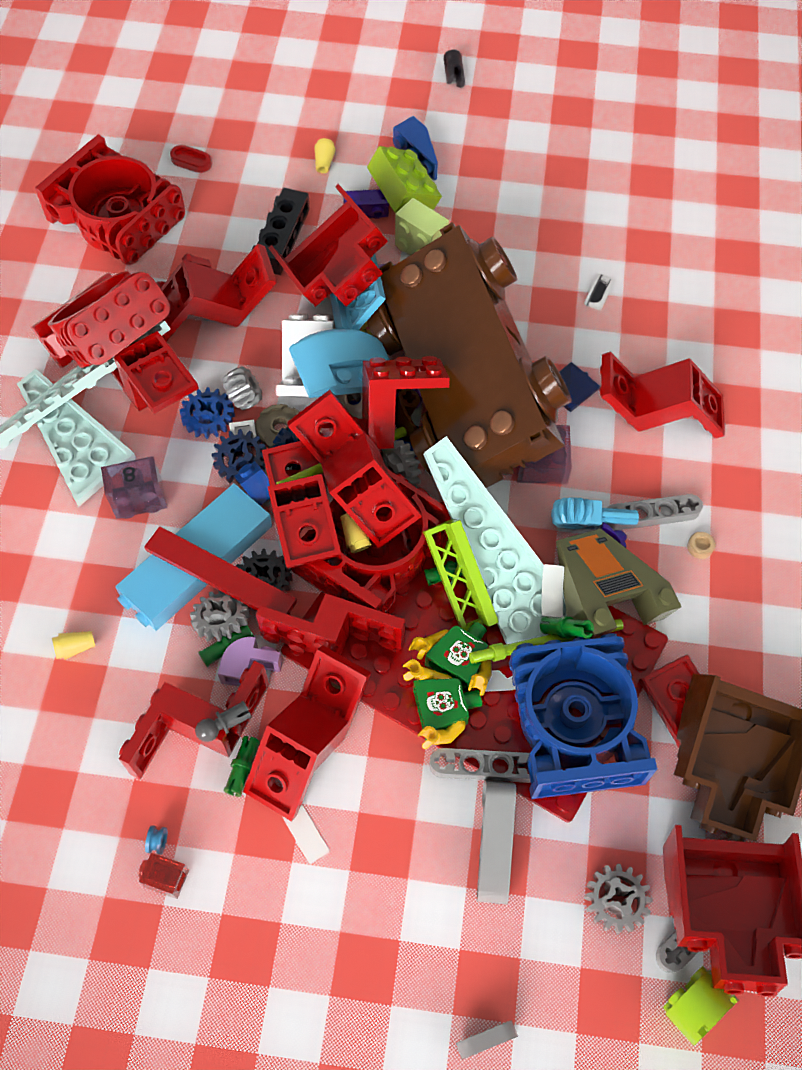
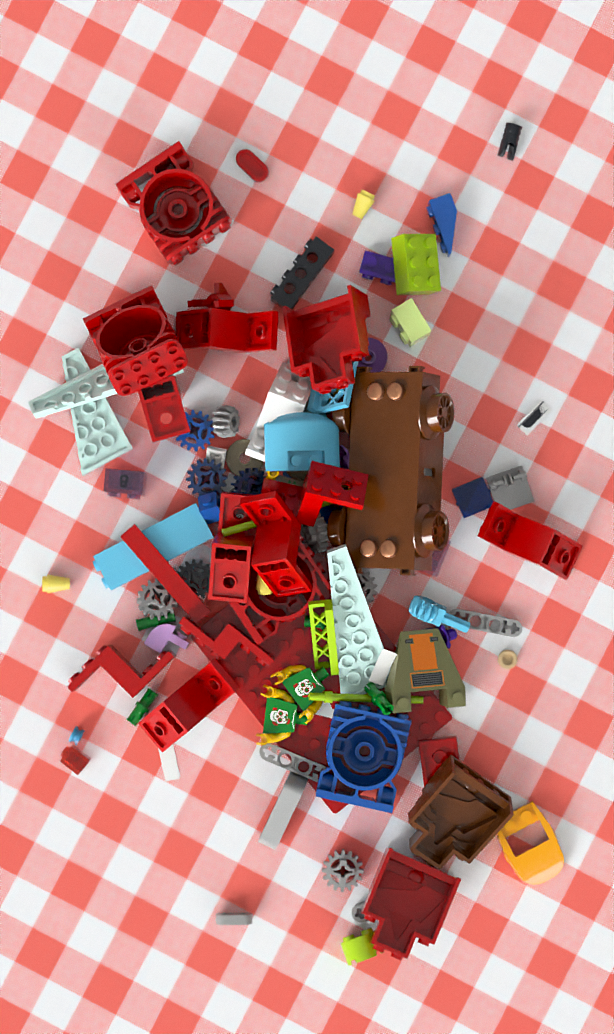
camera: 20 degrees right, 25 degrees up
(208, 729) = (126, 690): dark grey pin -> none
(593, 359) = (511, 488): none -> light grey hinge

